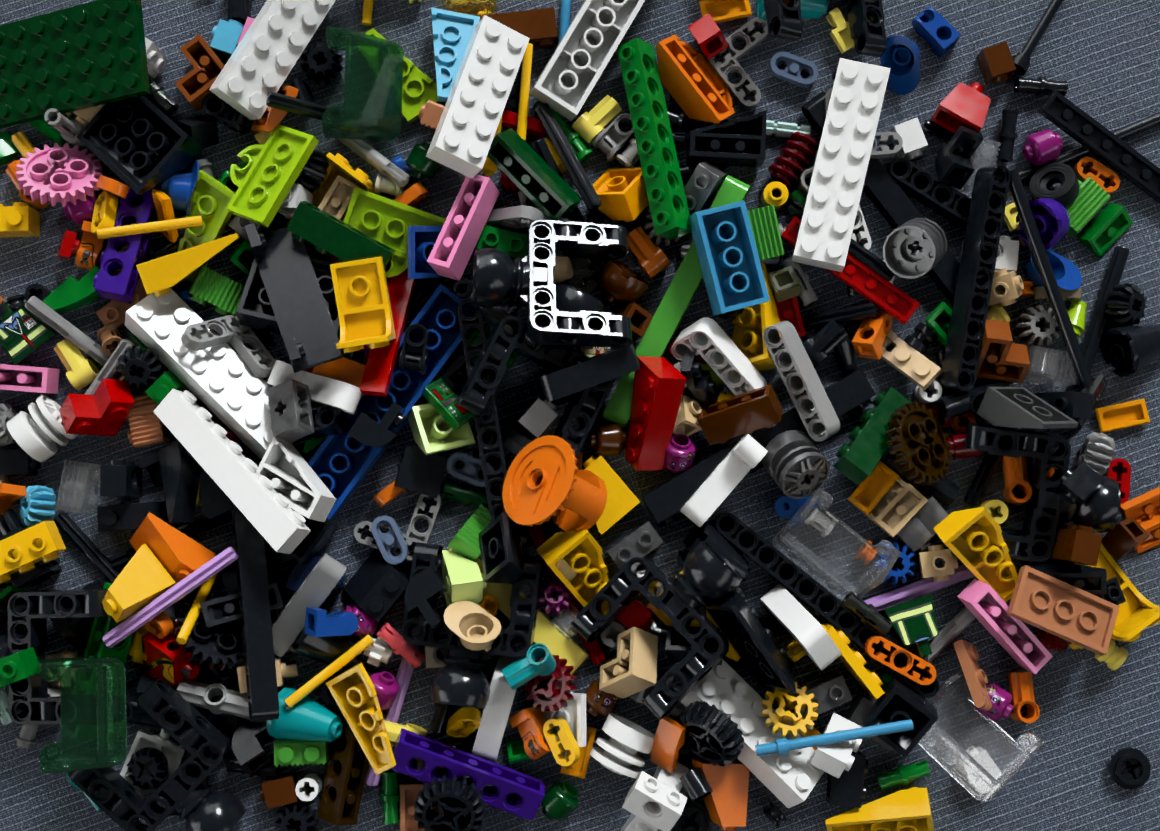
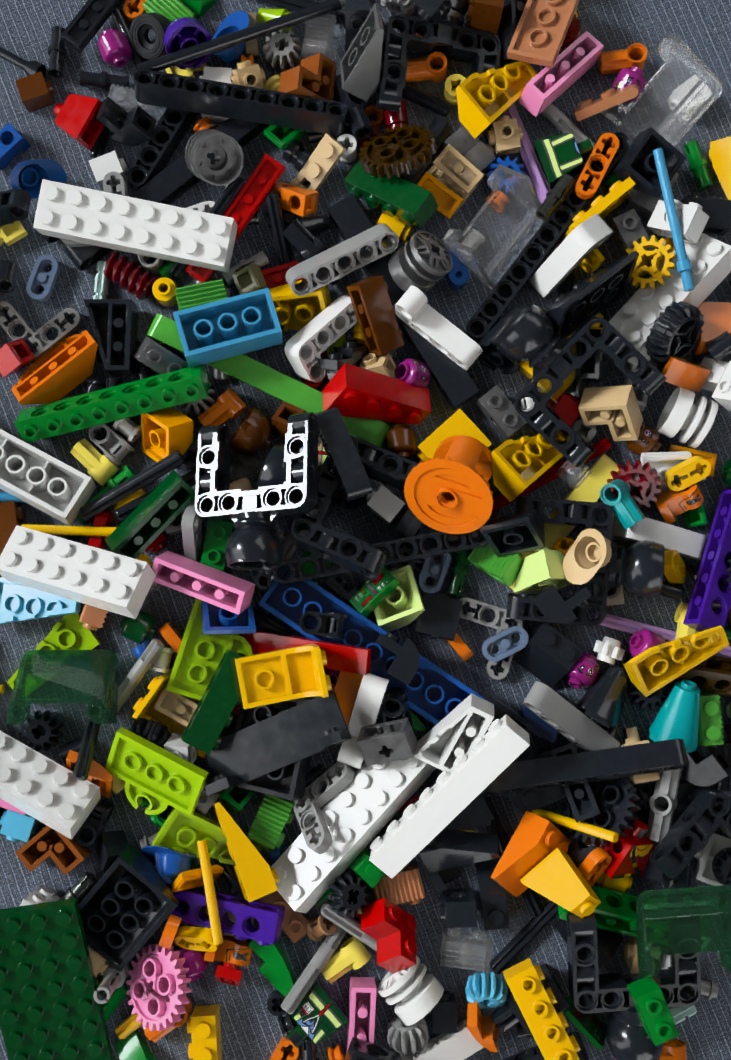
camera: 90 degrees left, 0 degrees up
(170, 597) = (573, 851): lavender axle -> none
(330, 670) = (633, 695): yellow bar -> none
(335, 624) = (591, 698): blue leg -> none
(400, 646) = (605, 629): coral pin -> none
(554, 606) = (549, 481): magenta gear -> none
(836, 441) = (397, 225): none -> yellow brick
(954, 240) = (204, 123): none -> orange bush

